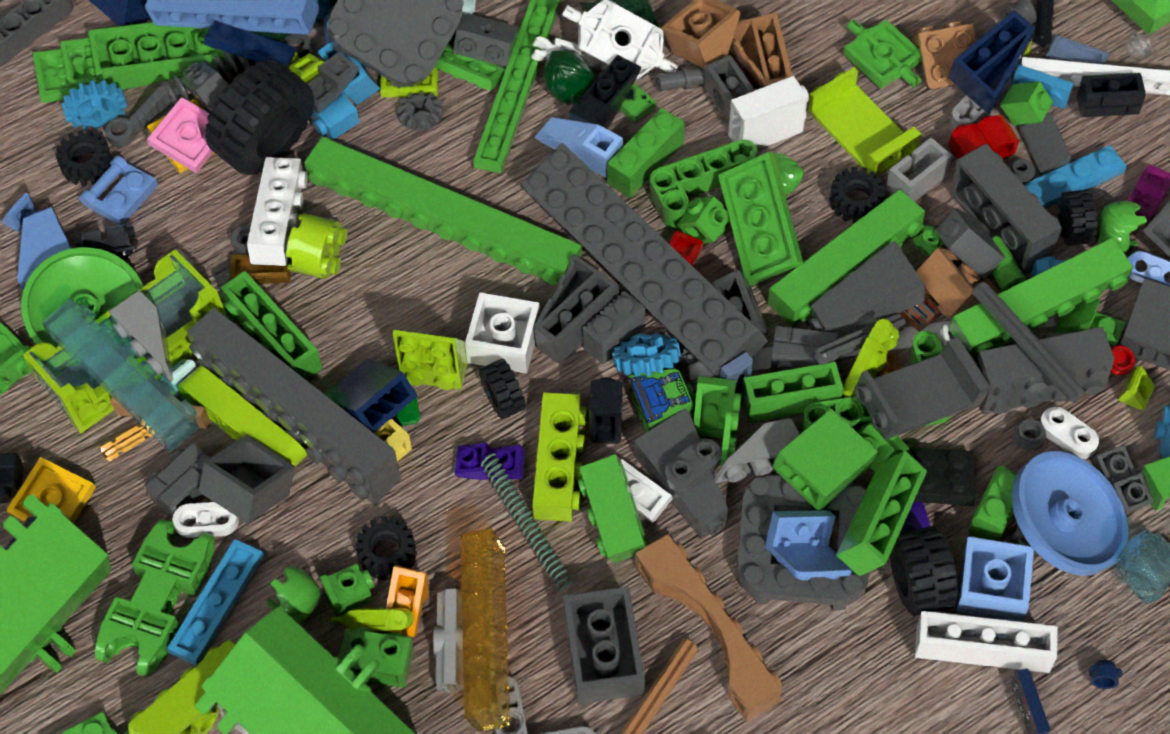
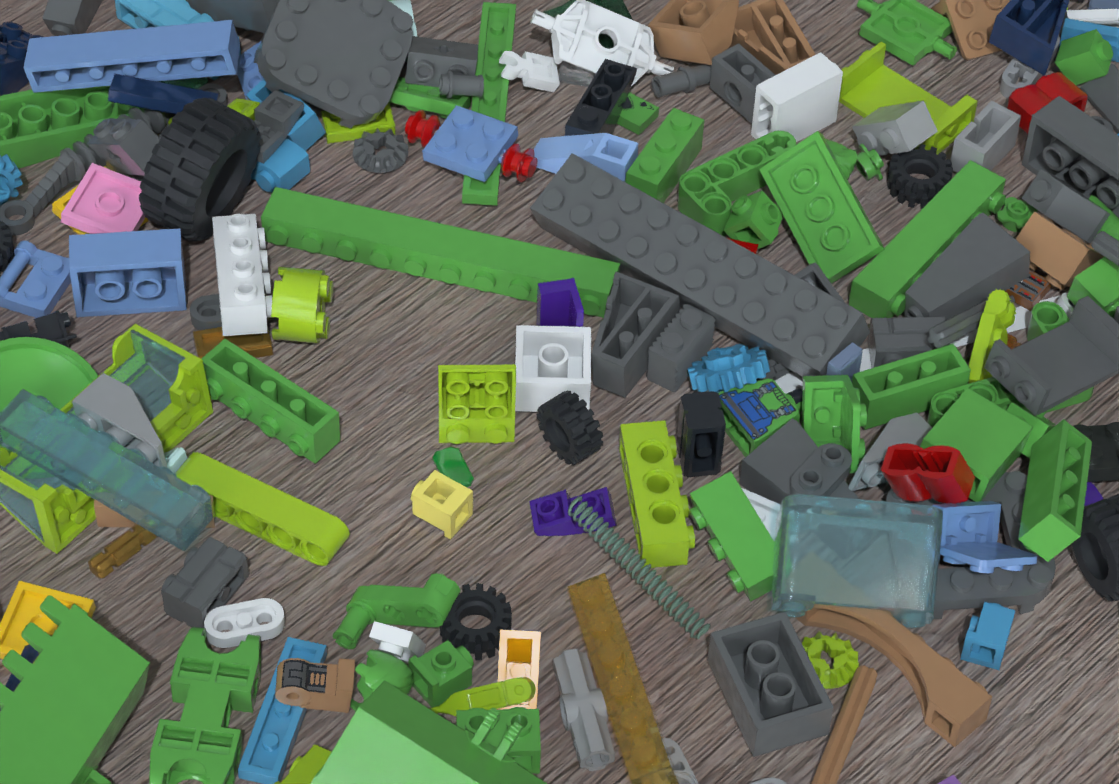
camera: 15 degrees left, 10 degrees down
(187, 198) = (127, 272): none -> medium blue brick
(241, 587) = (315, 684): none -> medium nougat leg
(246, 479) = (288, 565): dark grey piece -> none
(296, 406) = (374, 499): dark grey brick -> none
(309, 520) = (397, 606): none -> bright green beam
(314, 559) = (397, 641): none -> white plate
(372, 393) = (413, 455): dark blue brick -> none
(490, 117) = (471, 144): none -> medium blue plate
(494, 63) = (461, 85): none -> dark grey pin
(518, 279) = (559, 304): none -> dark purple panel
(567, 75) = (551, 90): dark green hair -> none
(649, 637) = (844, 661): none -> lime gear
(695, 553) = (857, 556): none -> clear light blue windscreen
(775, 483) = (928, 473): none -> red brick
(798, 629) = (988, 636): none -> dark azure brick
(817, 177) = (869, 163): none -> bright green plate
(843, 151) = (895, 128): none -> light grey piece

